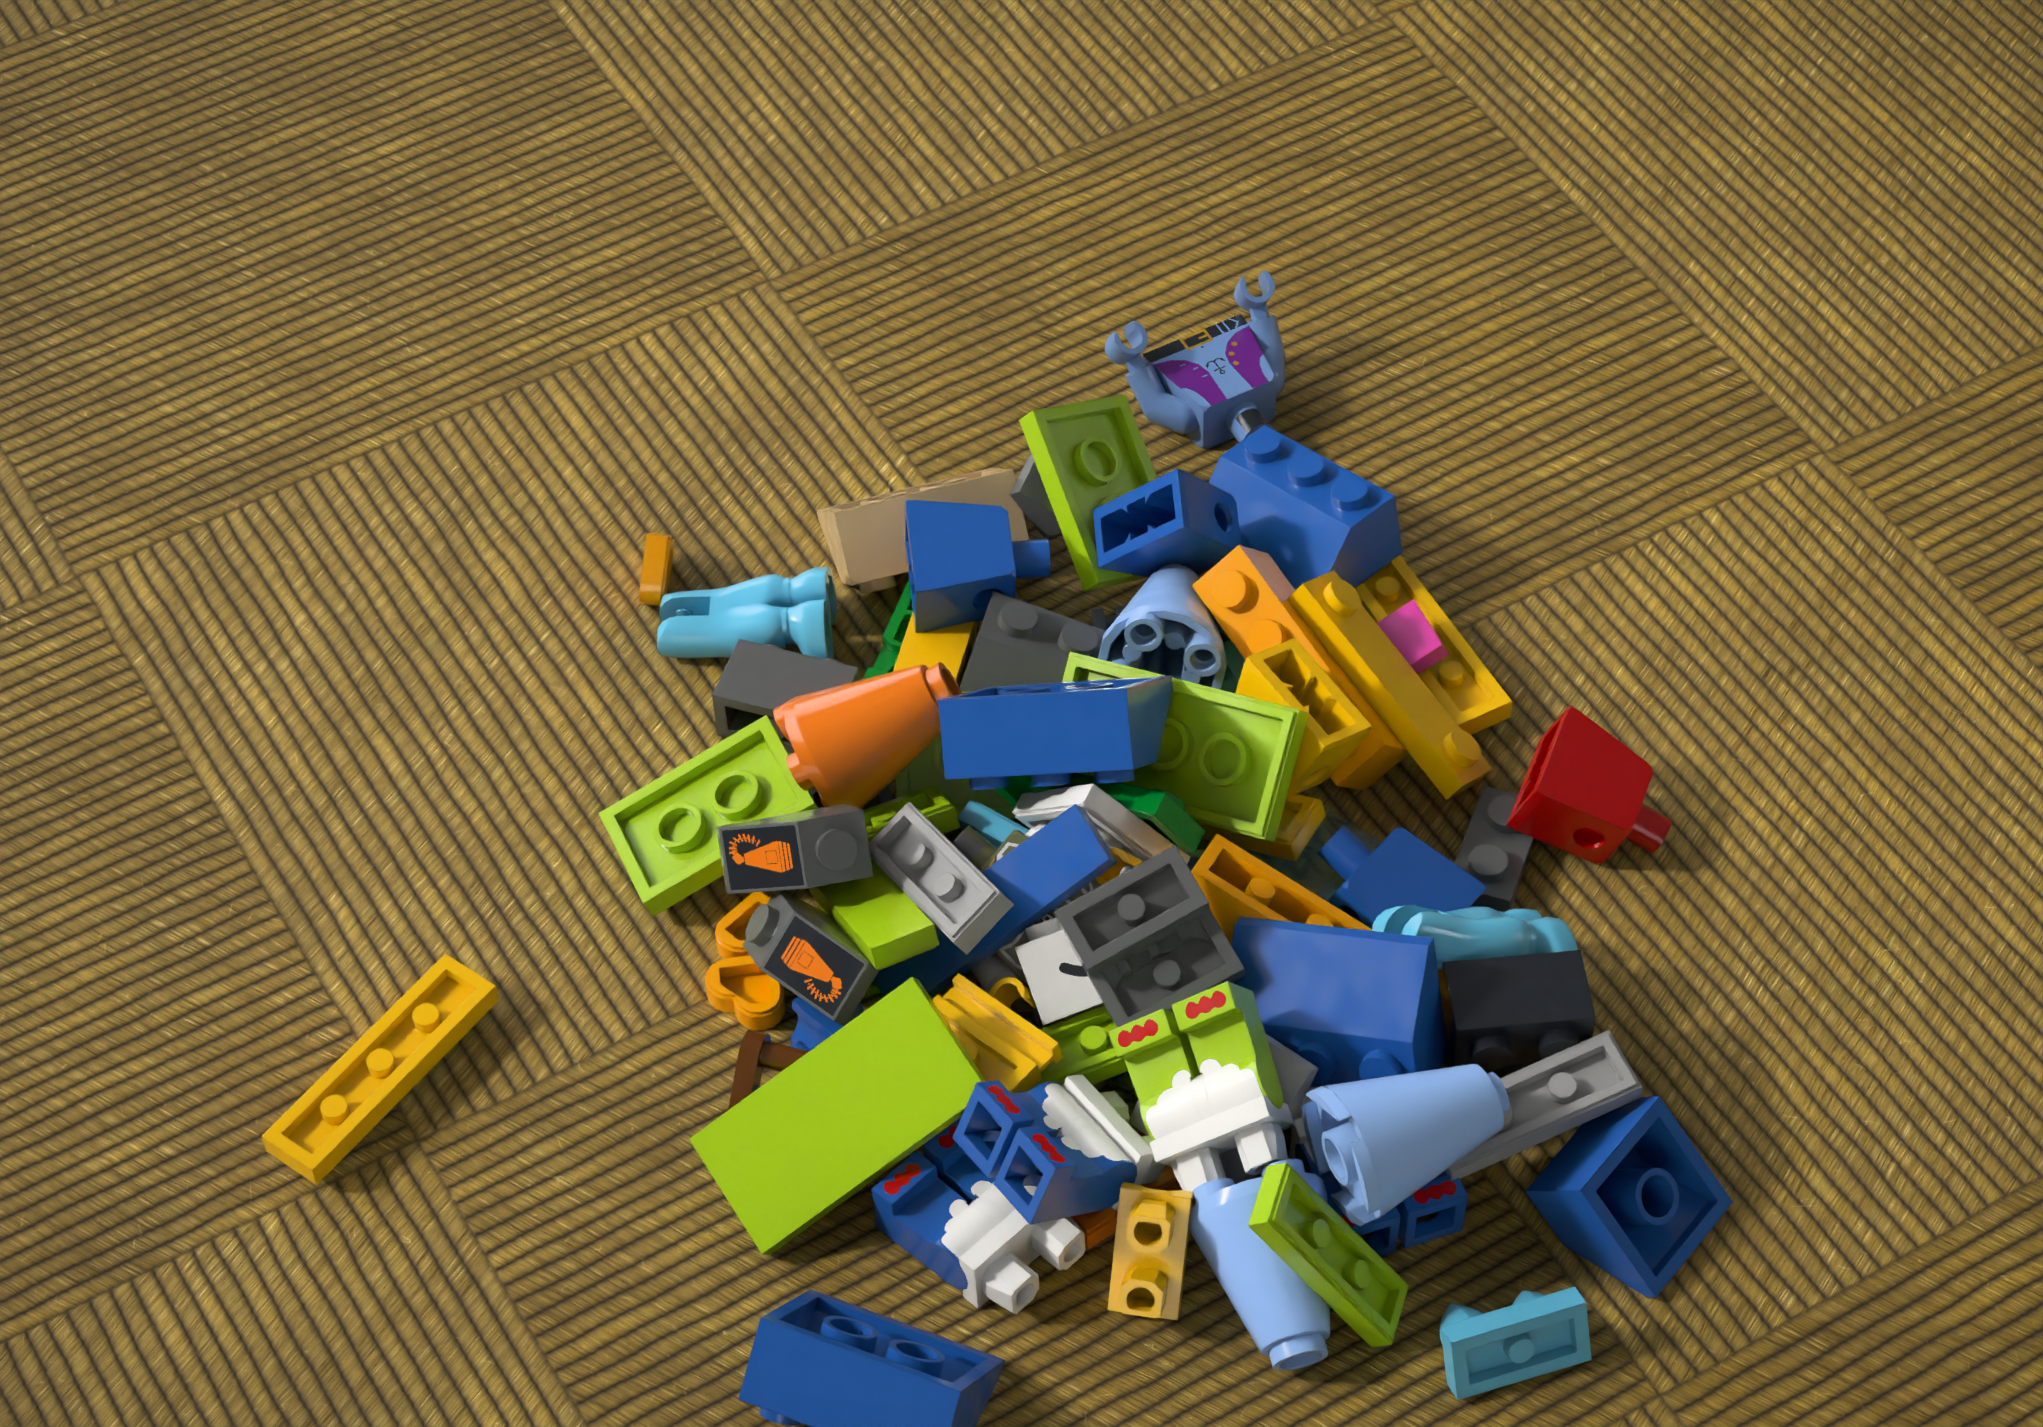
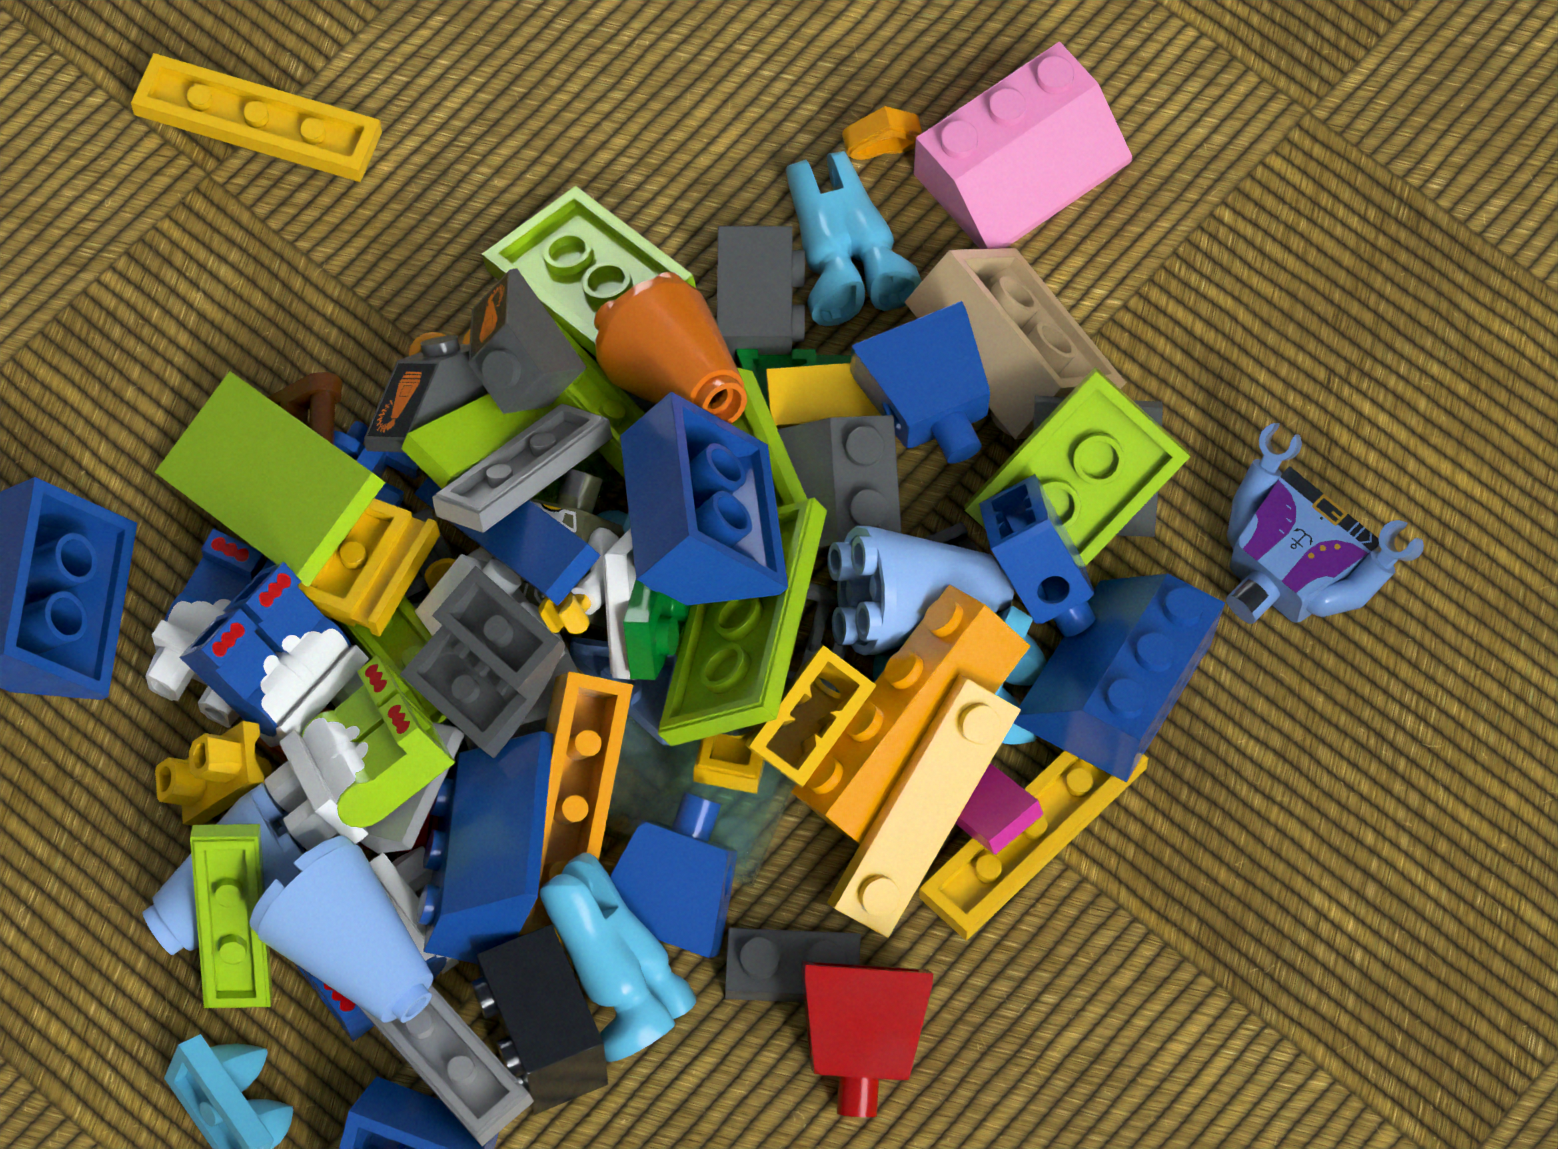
camera: 70 degrees right, 15 degrees up
(723, 471) = (1022, 150): none -> bright pink slope

